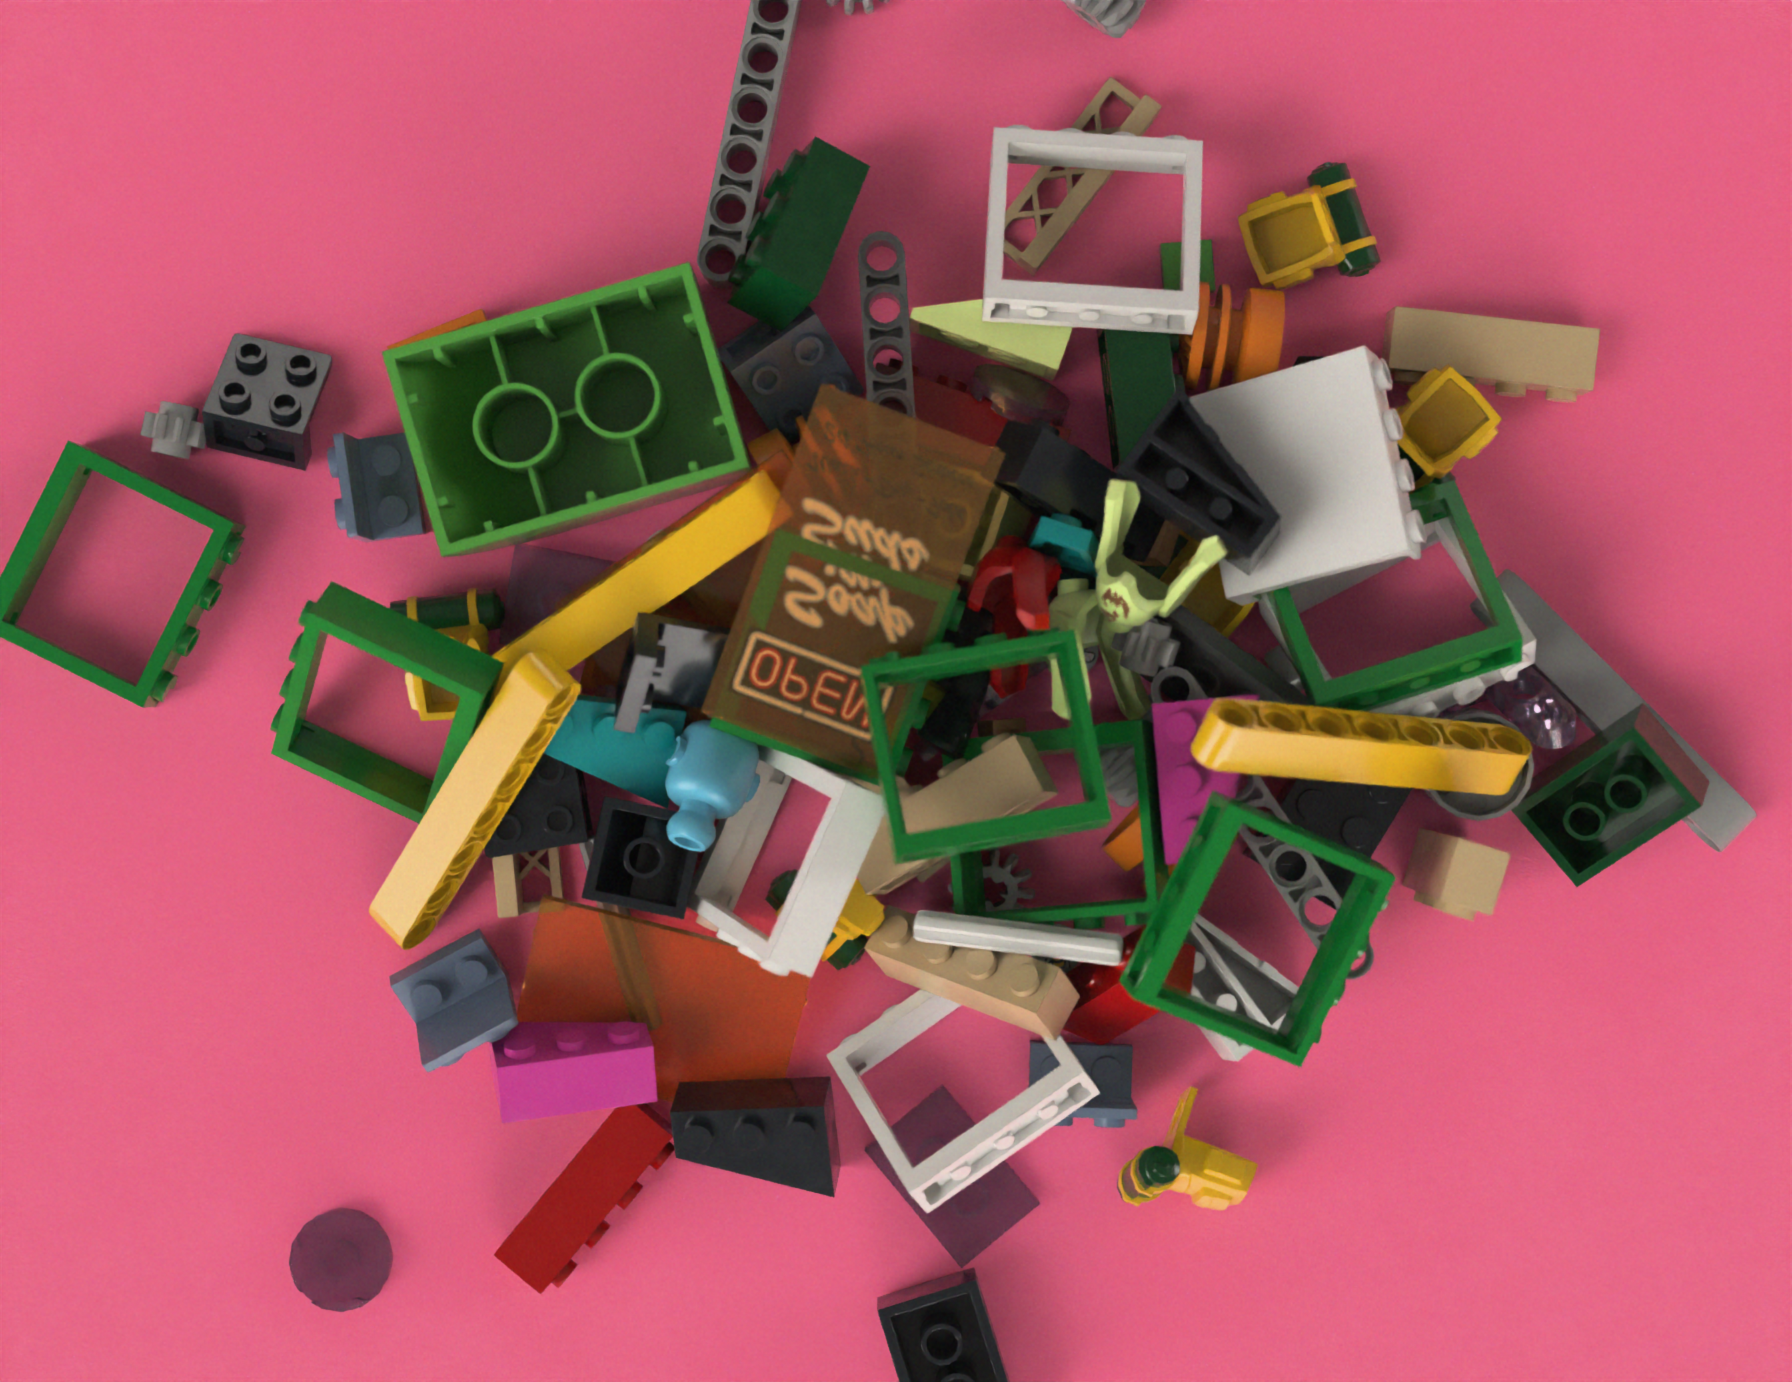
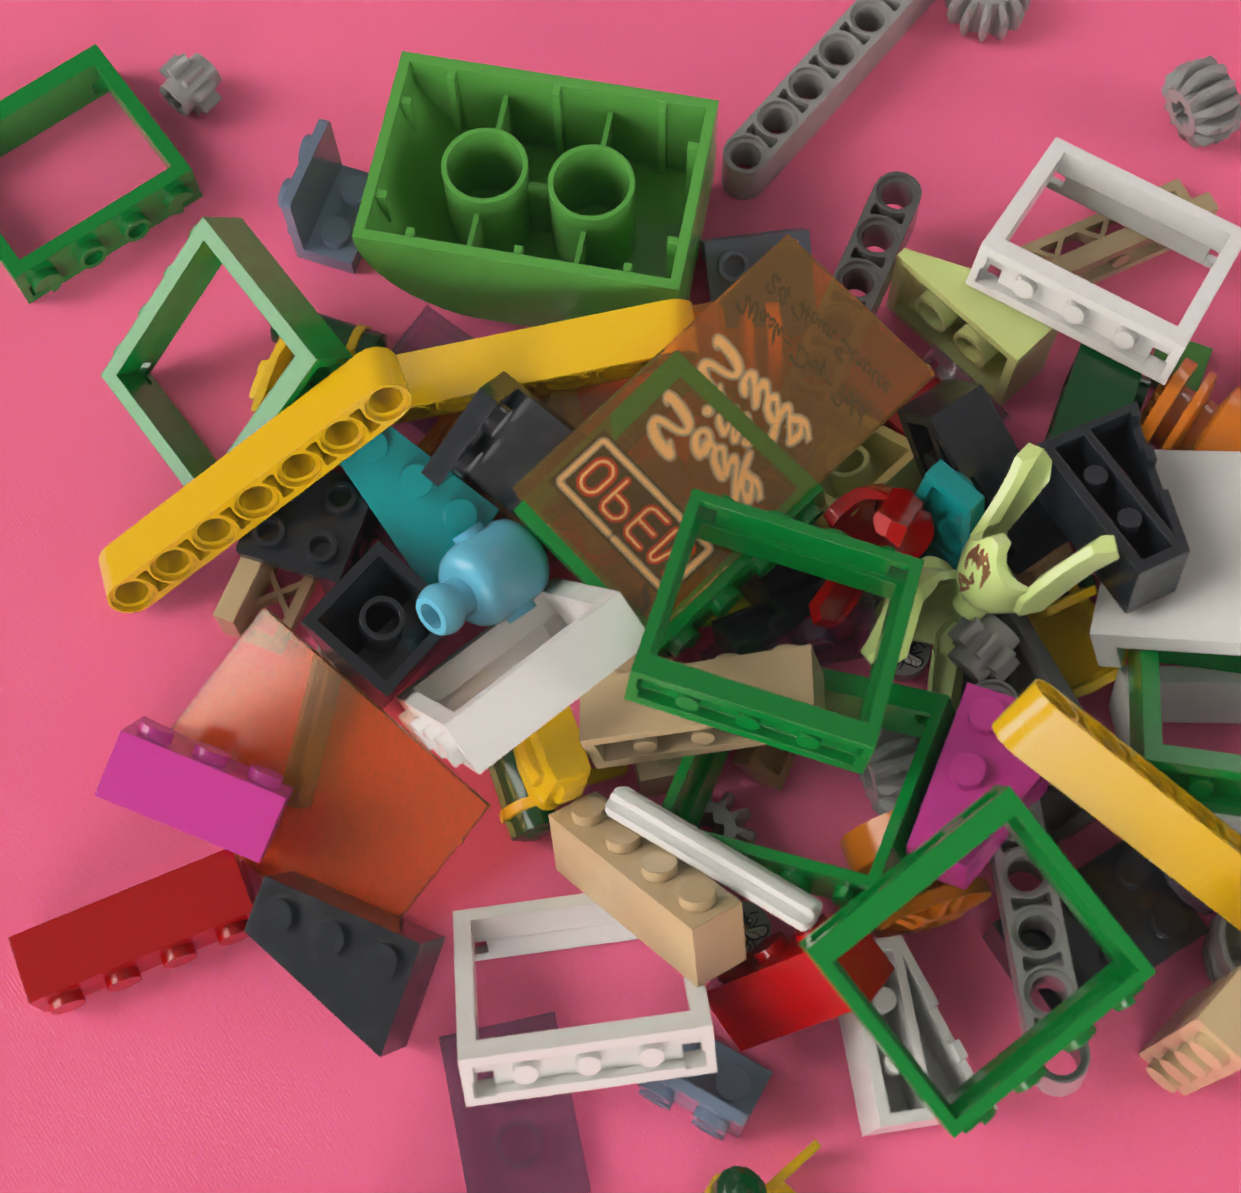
camera: 30 degrees right, 20 degrees down
(265, 401) = (274, 98): black bracket -> none
(456, 999) = (129, 669): sand blue bracket -> none
(796, 233) = (826, 149): dark green brick -> none

